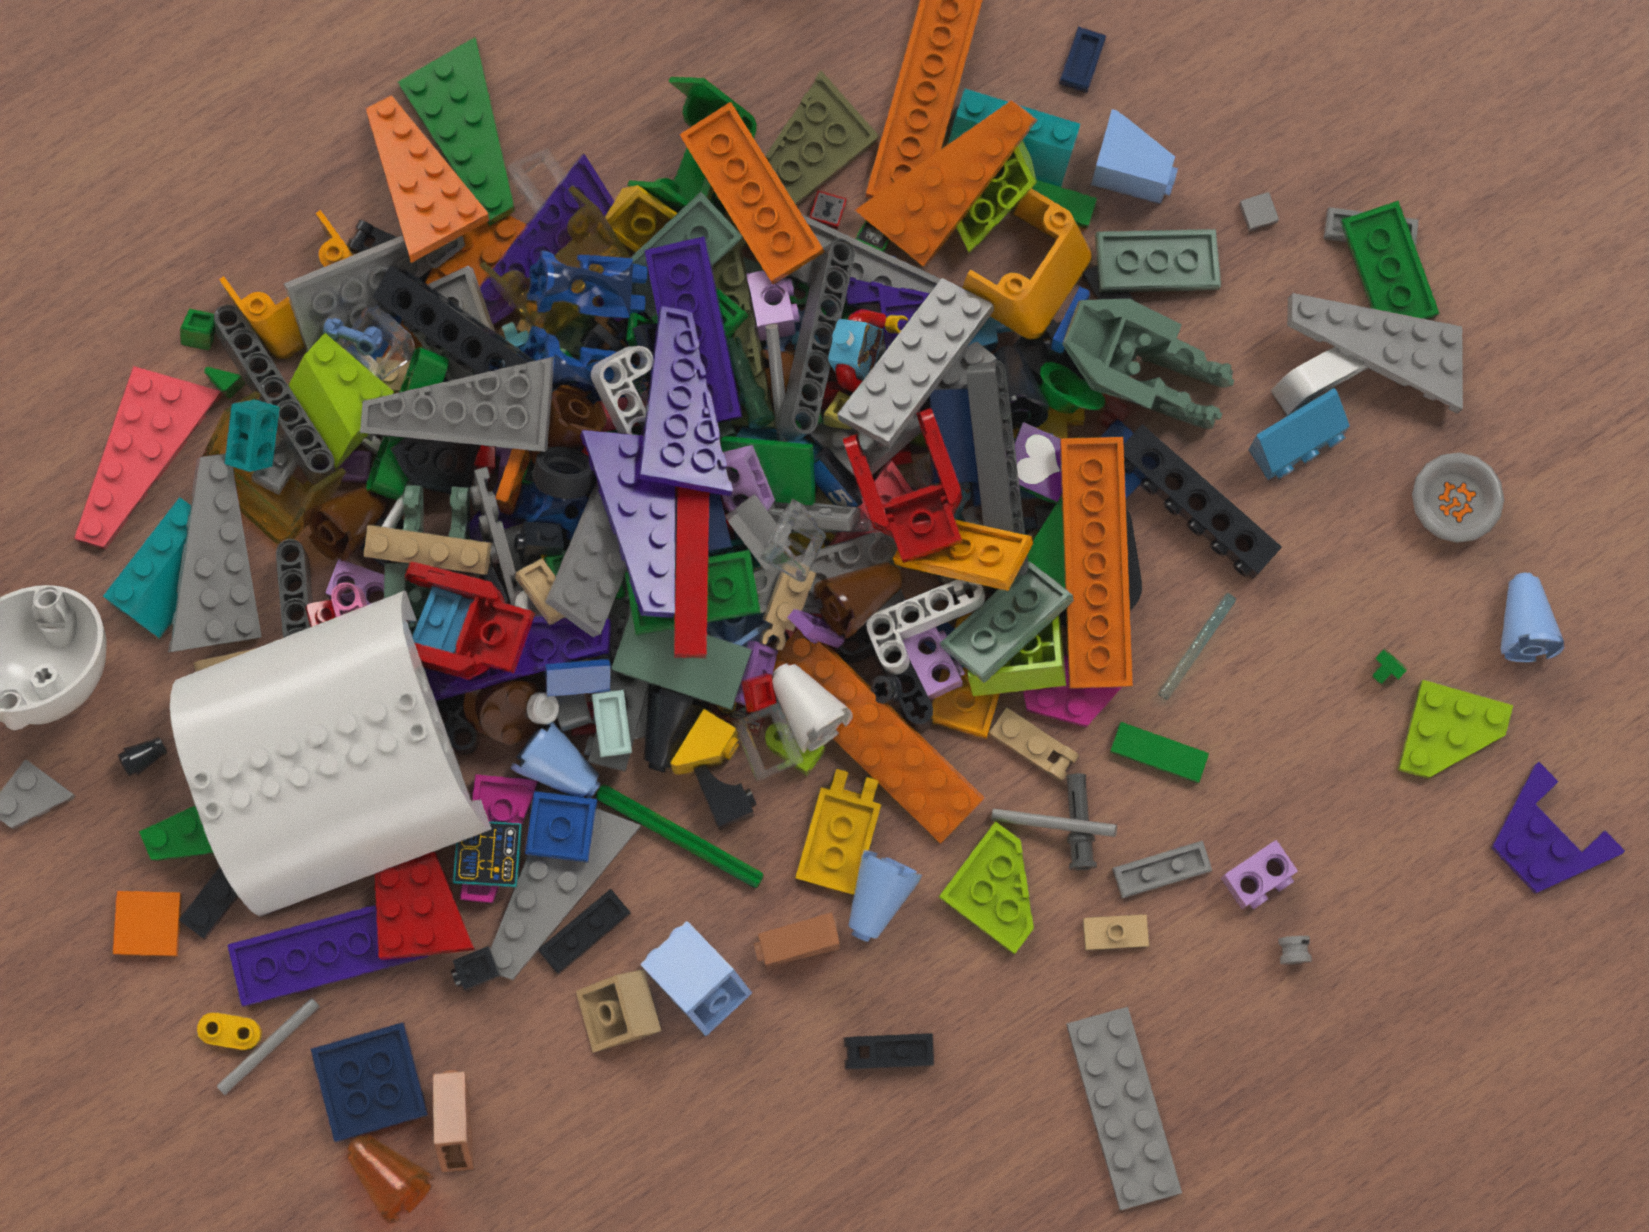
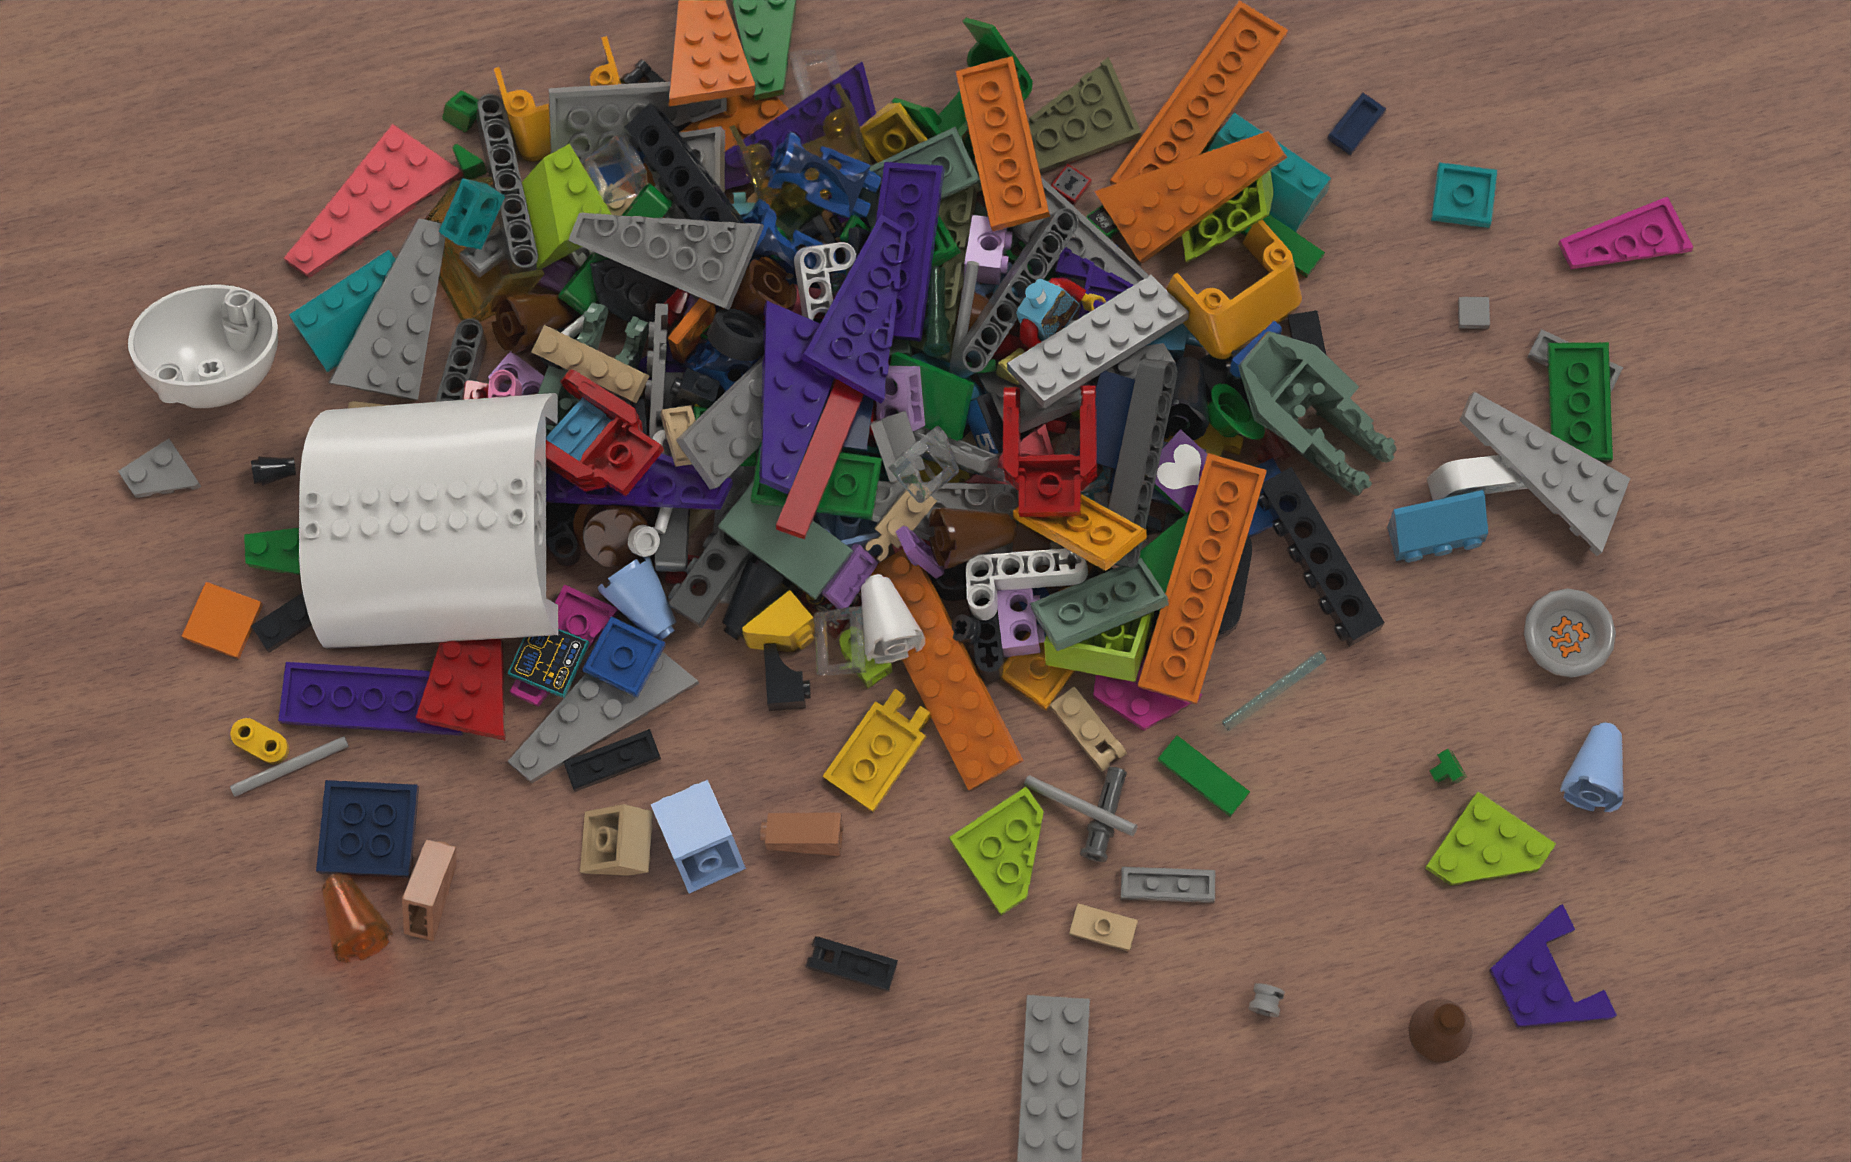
camera: 25 degrees right, 5 degrees down
(366, 341) = (604, 165): medium blue bar -> none
(475, 969) = (499, 758): black bracket -> none
(577, 677) = (684, 522): tile -> none
(611, 723) = (701, 576): light aqua tile -> none
(679, 836) = (730, 703): green axle -> none
(758, 692) = (845, 592): red tile -> none
(879, 894) = (893, 815): light blue cone -> none
(1133, 162) = (1367, 228): light blue slope -> none
(1157, 260) = (1361, 326): sand green tile -> none
(1209, 97) = (1464, 195): none -> teal tile
(1255, 869) = (1254, 912): lavender brick -> none
(1385, 86) = (1636, 235): none -> dark pink wing
(1465, 921) = (1440, 1030): none -> reddish brown cone

